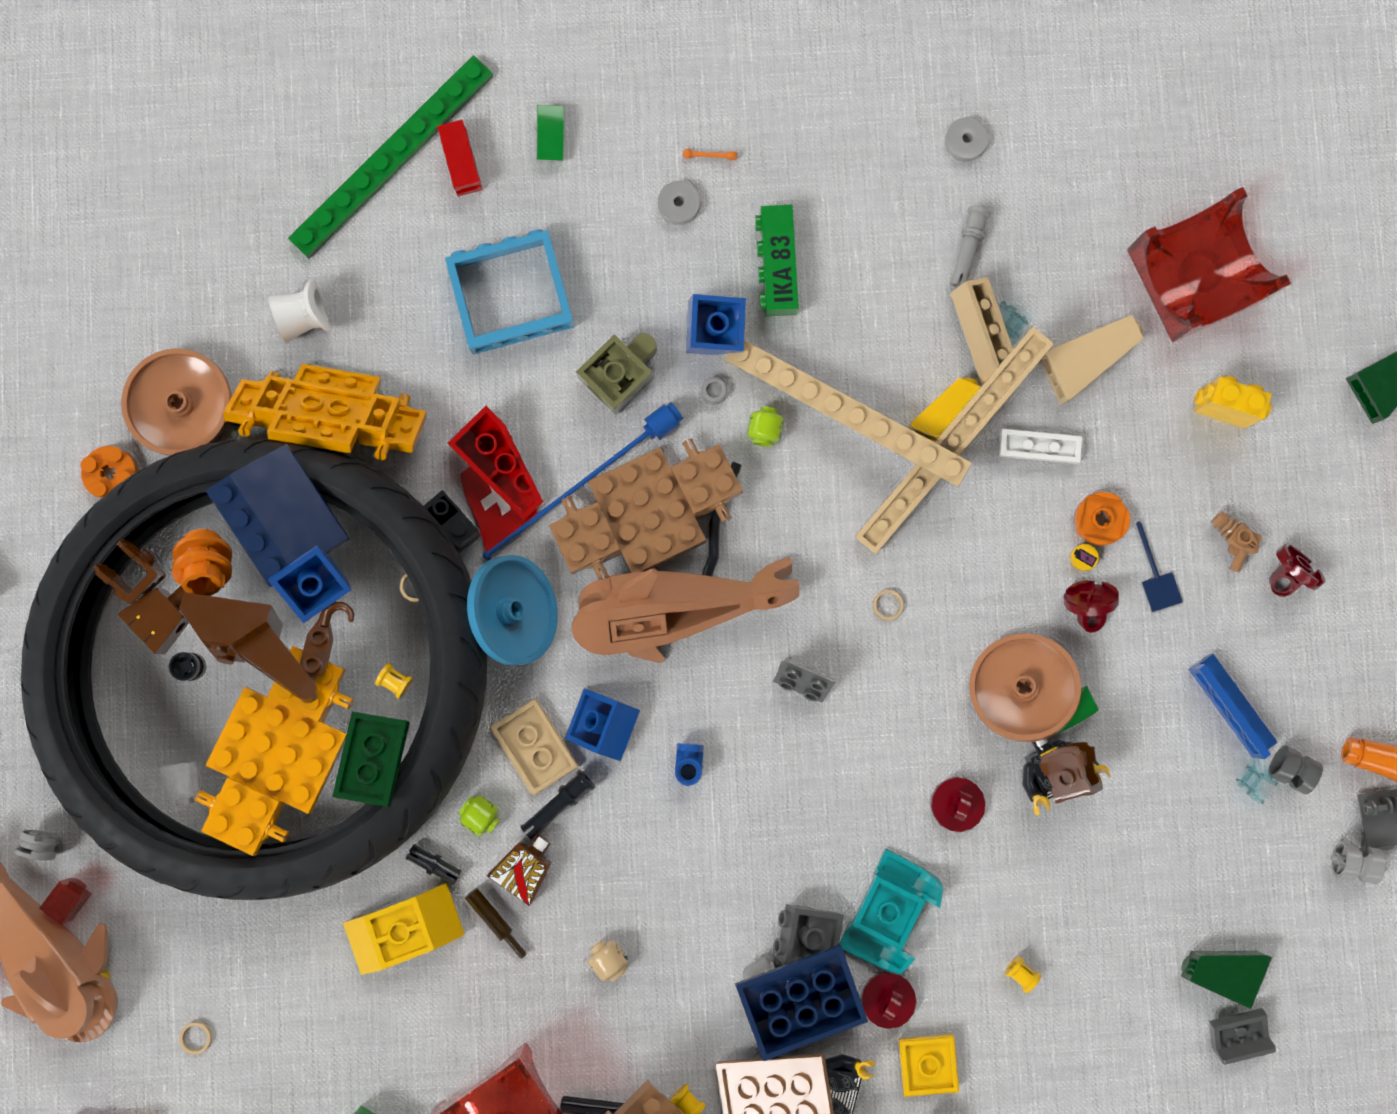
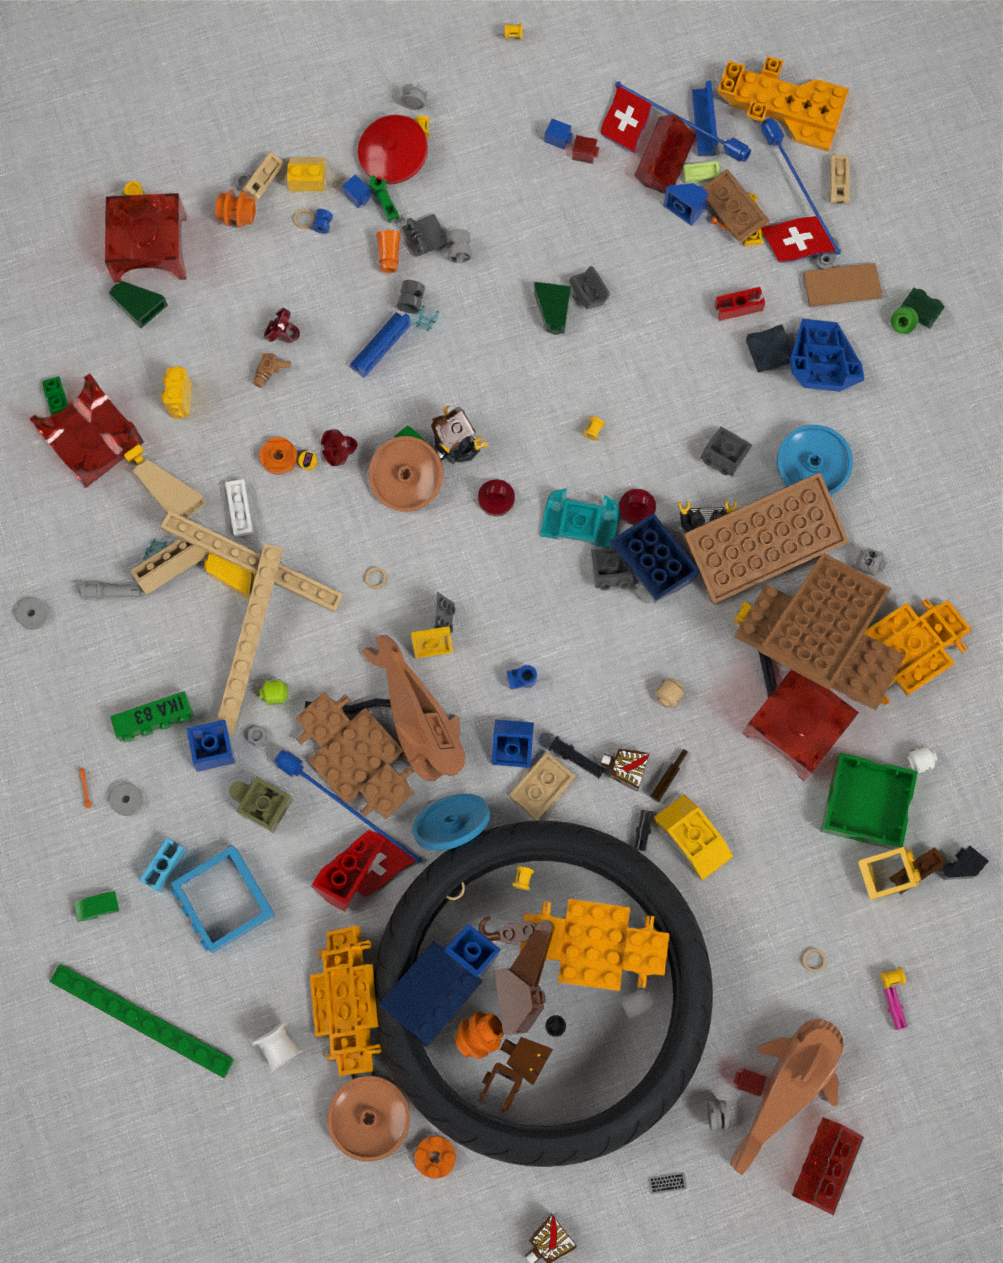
camera: 100 degrees left, 10 degrees down
(371, 759) = (580, 875): dark green plate -> none
(452, 520) = (398, 886): black slope -> none
(459, 158) = (131, 966): red piece -> none
(479, 815) = (600, 808): lime head -> none
(577, 217) = (154, 865): none -> medium azure piece
(770, 654) = (432, 642): none -> yellow plate
(928, 1065) = (670, 471): yellow plate -> none
(1155, 324) = (135, 455): none -> yellow tile
(1162, 589) = (315, 407): dark blue piece -> none
(1274, 239) = (55, 395): none -> green slope

